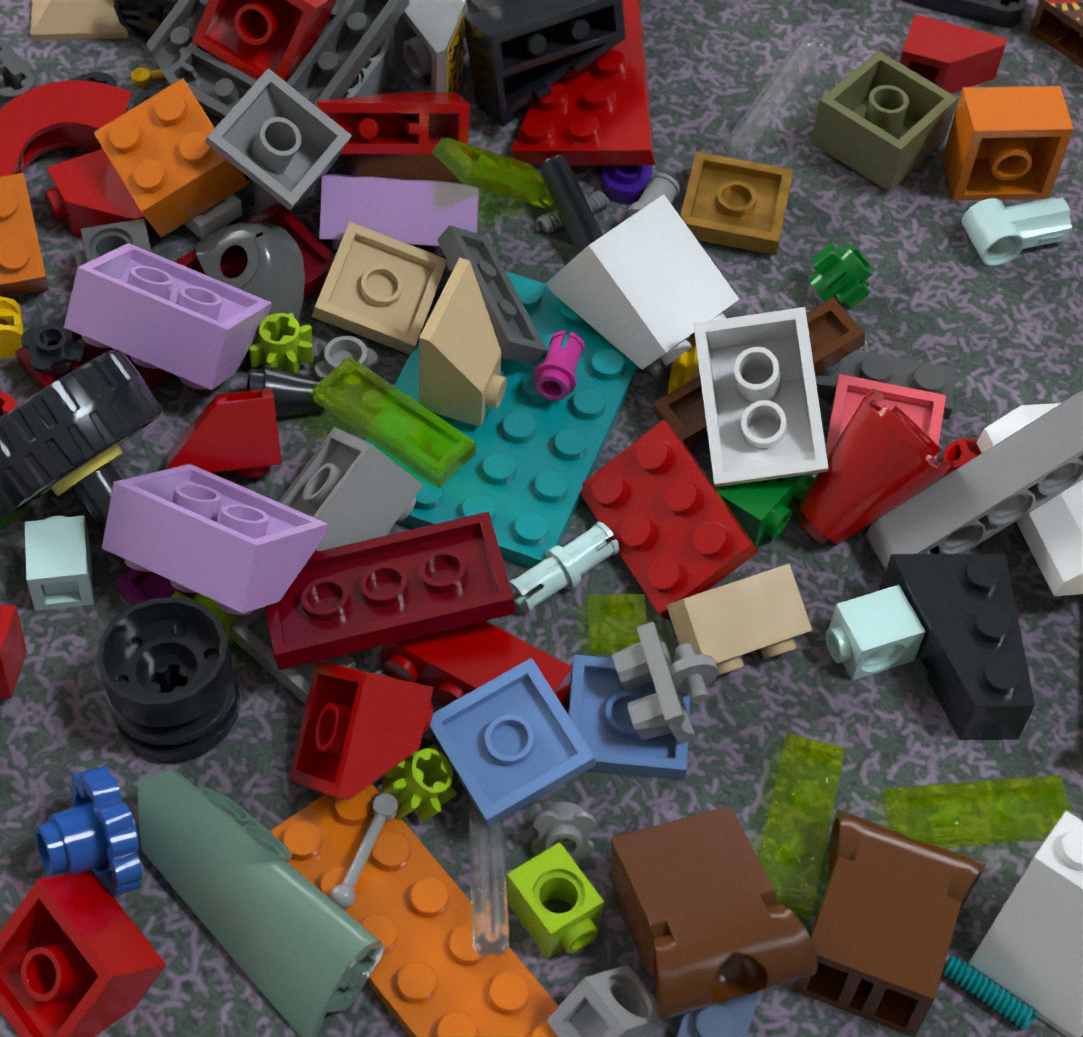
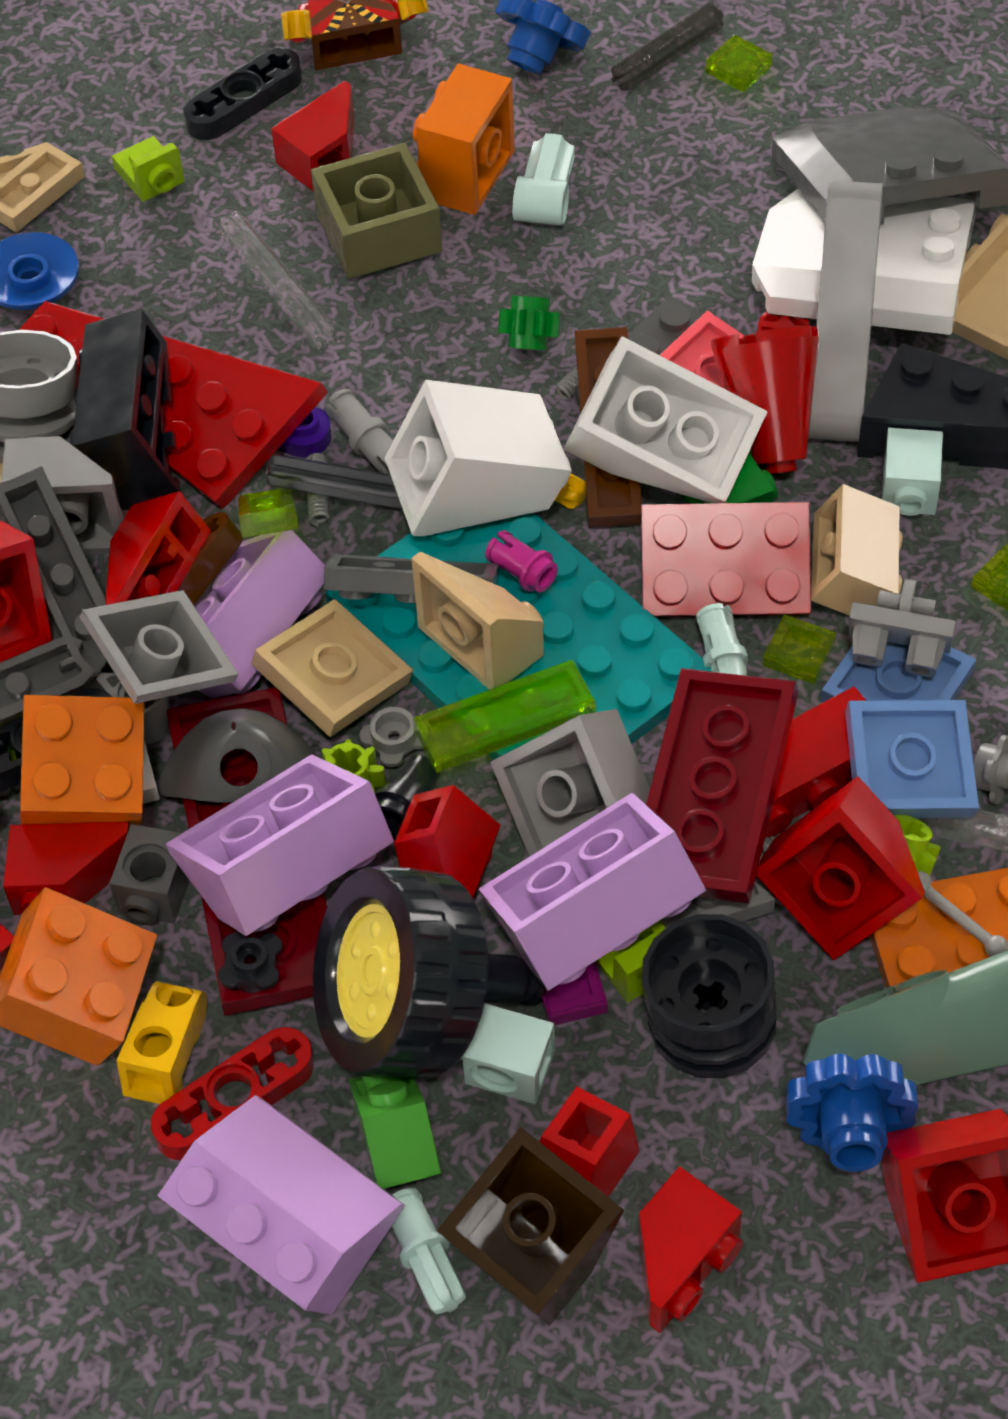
camera: 55 degrees left, 0 degrees up
(736, 202) = (389, 360): pearl gold plate -> none

